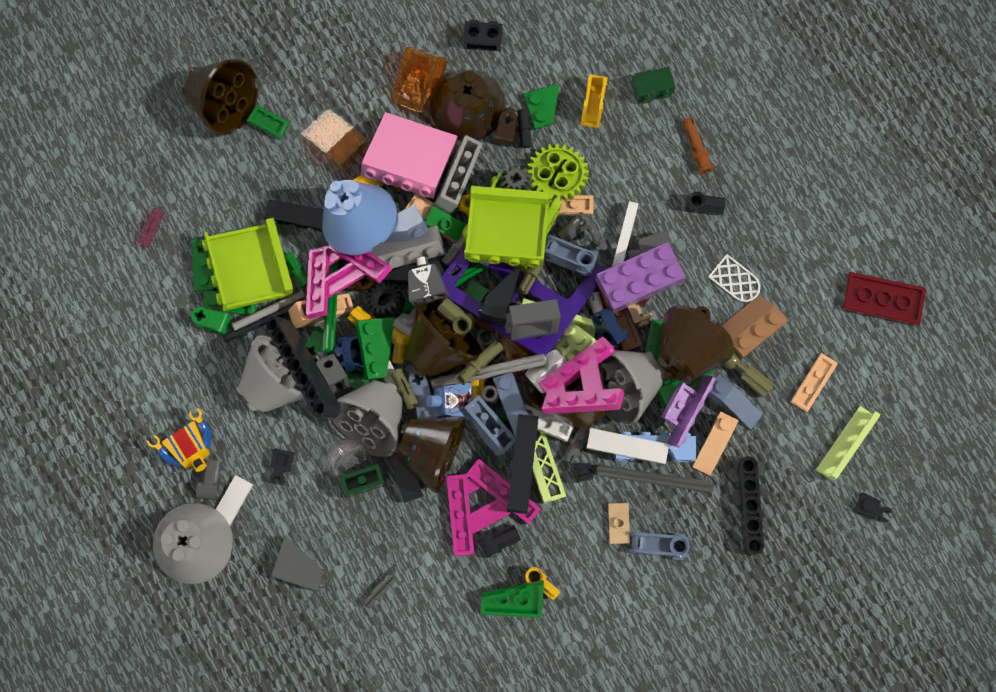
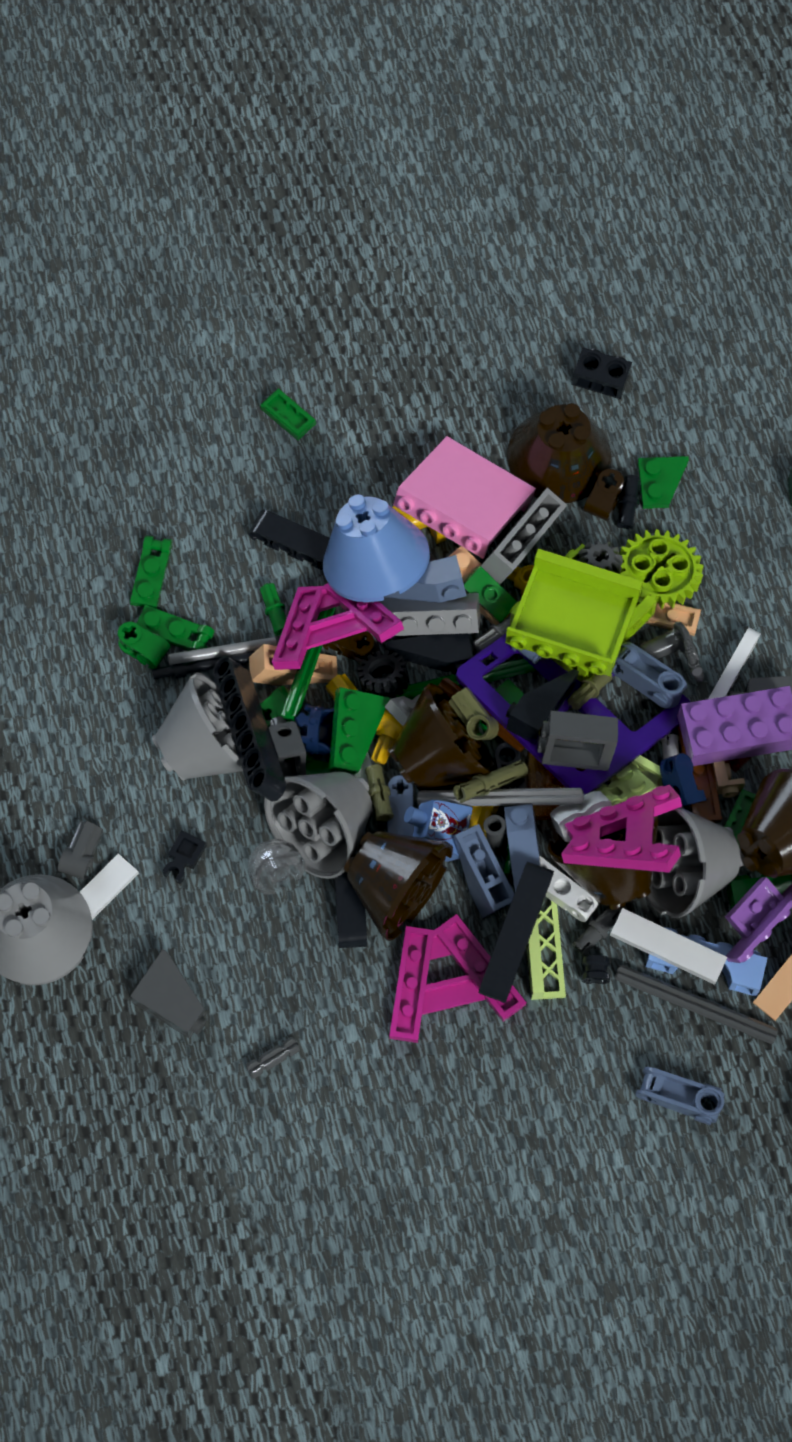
camera: 15 degrees right, 10 degrees down
(151, 228) = (96, 509): clear pink pin -> none
(187, 445) = (64, 797): torso -> none
(222, 94) = (238, 361): dark brown cone -> none
(247, 266) = (211, 587): lime panel -> none
(335, 139) = (371, 457): clear orange slope -> none
(362, 481) = (289, 902): dark green brick -> none
(418, 78) = (502, 404): clear orange slope -> none
(425, 283) = (444, 662): dark grey torso -> none
(495, 542) = (452, 1033): black piece -> none
(514, 601) = (458, 1118): green wing -> none
(549, 589) = (502, 1105): yellow axle -> none
(594, 101) = (730, 489): yellow piece -> none
(618, 523) = (630, 1052): tan plate -> none

